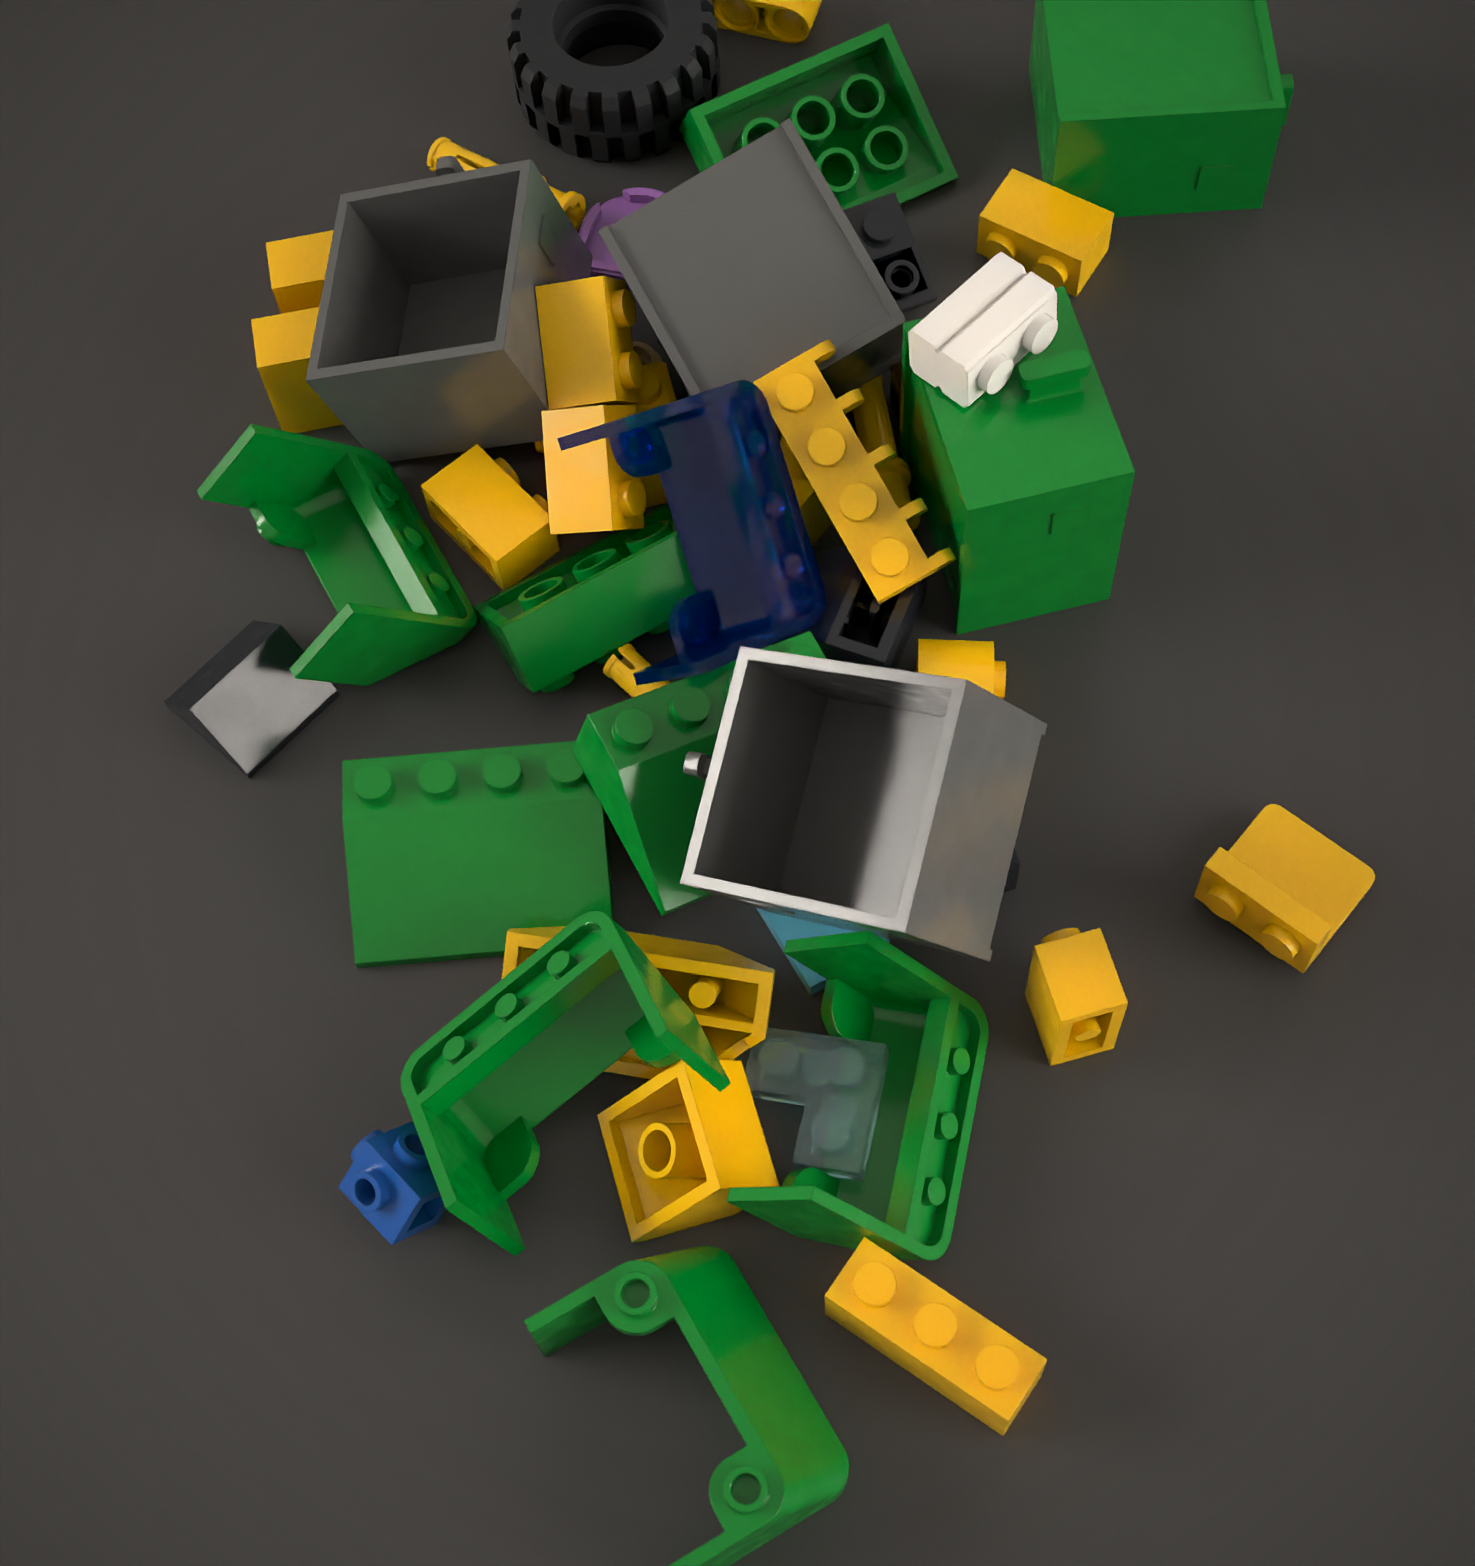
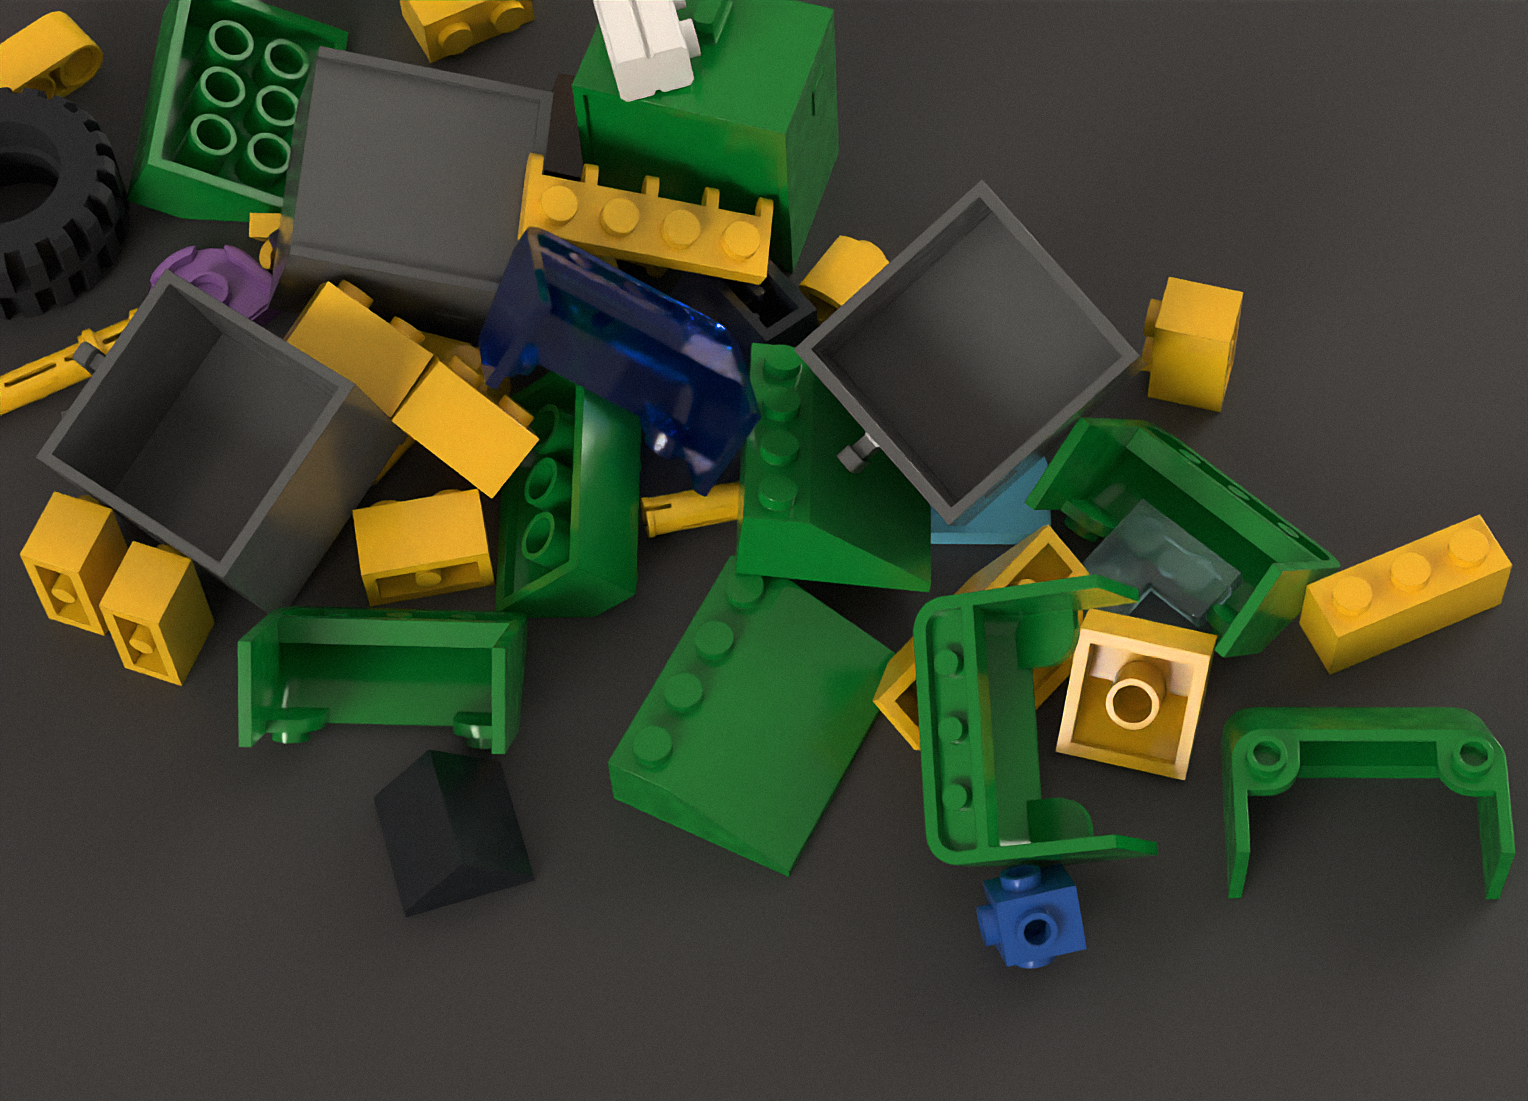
camera: 60 degrees left, 5 degrees down
(1284, 886) = (1184, 171): yellow bracket -> none

